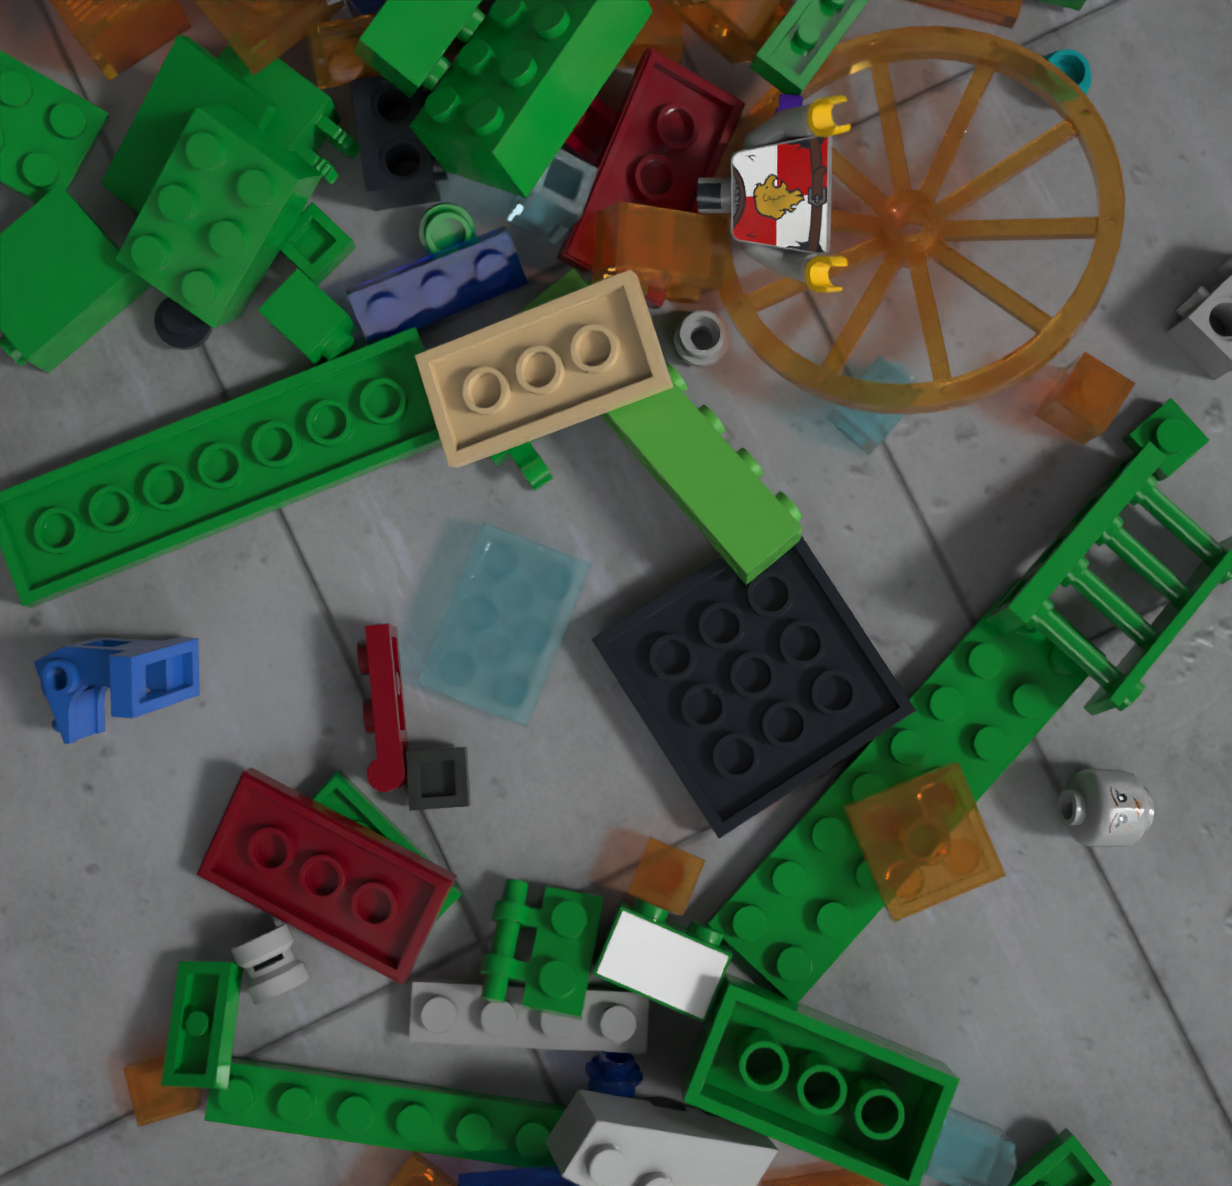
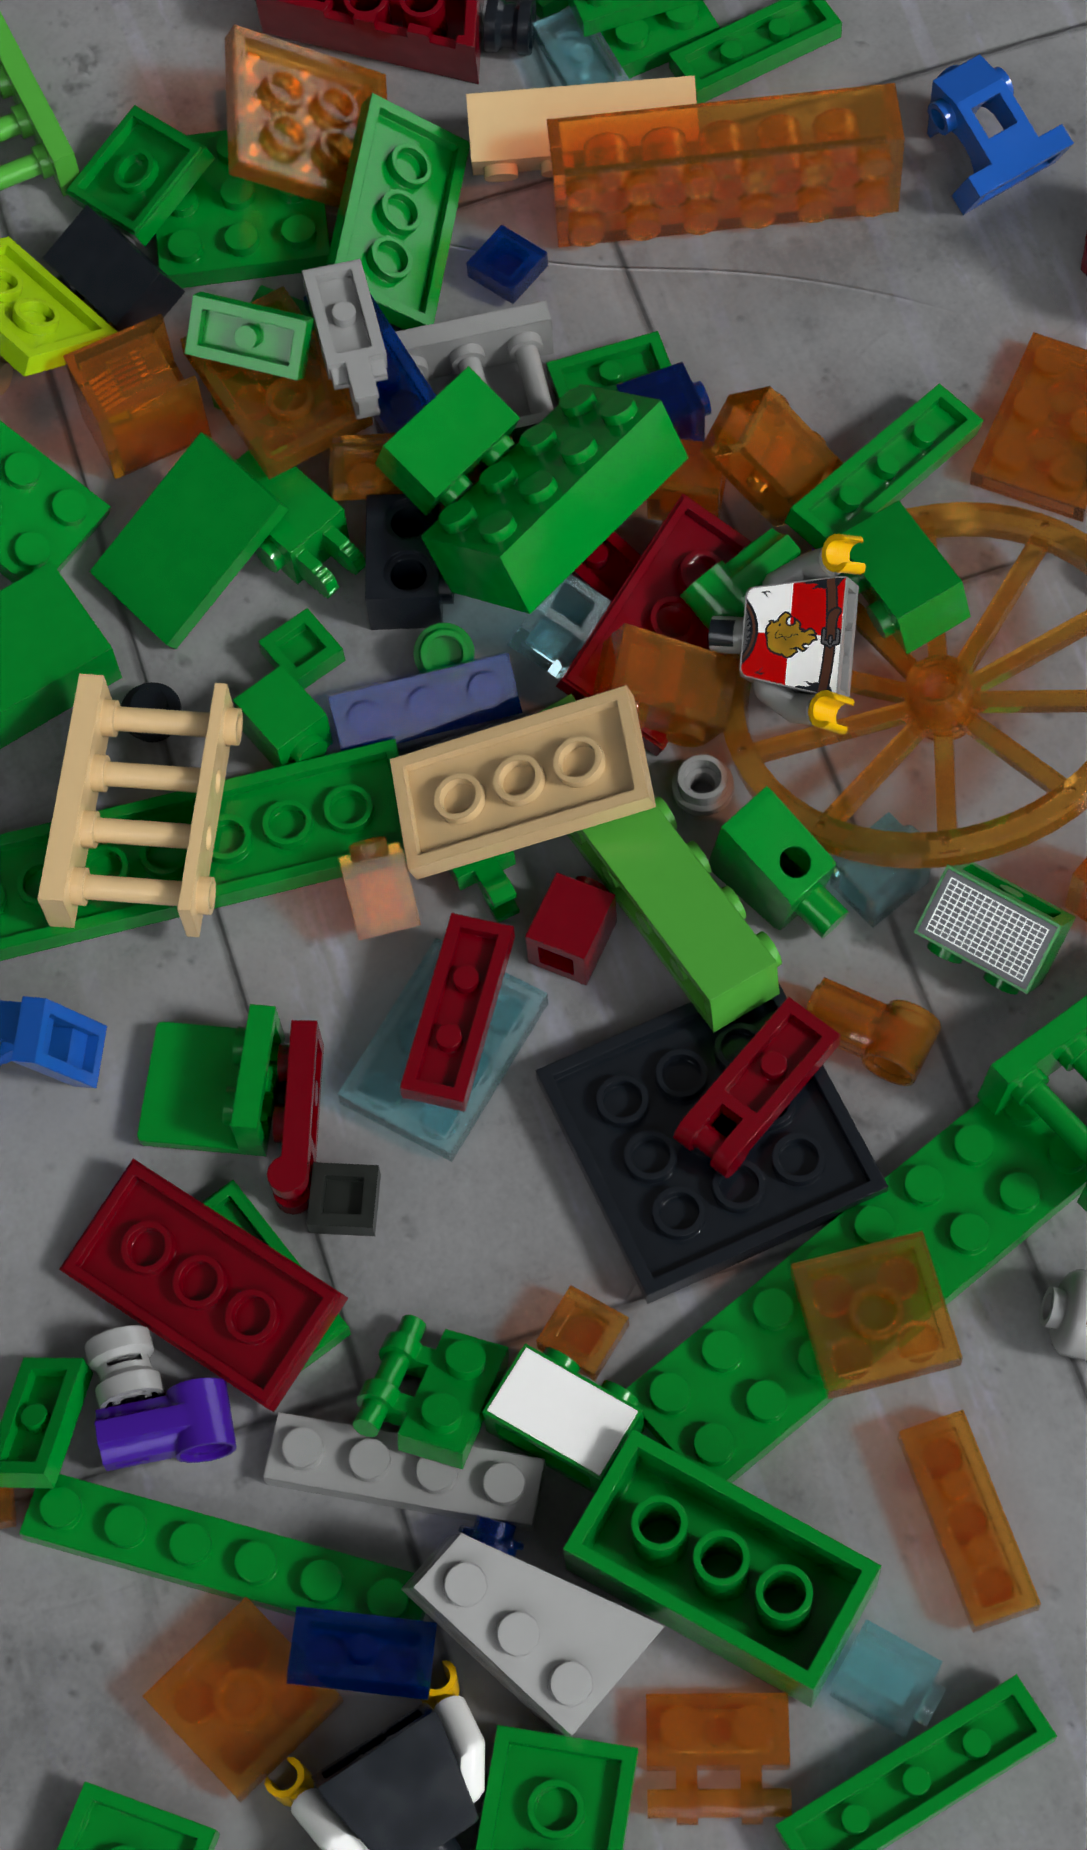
camera: 15 degrees right, 20 degrees down
(134, 401) = (89, 771): none -> tan fence
(218, 214) = (210, 602): green brick -> none
(302, 685) = (213, 1085): none -> green bracket
(332, 1005) = (185, 1425): none -> dark purple piece
(423, 483) = (378, 888): none -> clear orange brick
(515, 598) = (457, 1012): none -> dark red plate
(604, 493) = (572, 927): none -> dark red brick
(708, 141) = (724, 586): none -> green piece
(763, 413) = (777, 865): none -> green torso
(795, 636) = (758, 1085): none -> dark red plate
(885, 121) = (905, 579): none -> green brick
(897, 565) = (887, 1037): none -> clear orange piece
(986, 455) = (993, 927): none -> brick
(1016, 1001) = (968, 1521): none -> clear orange plate

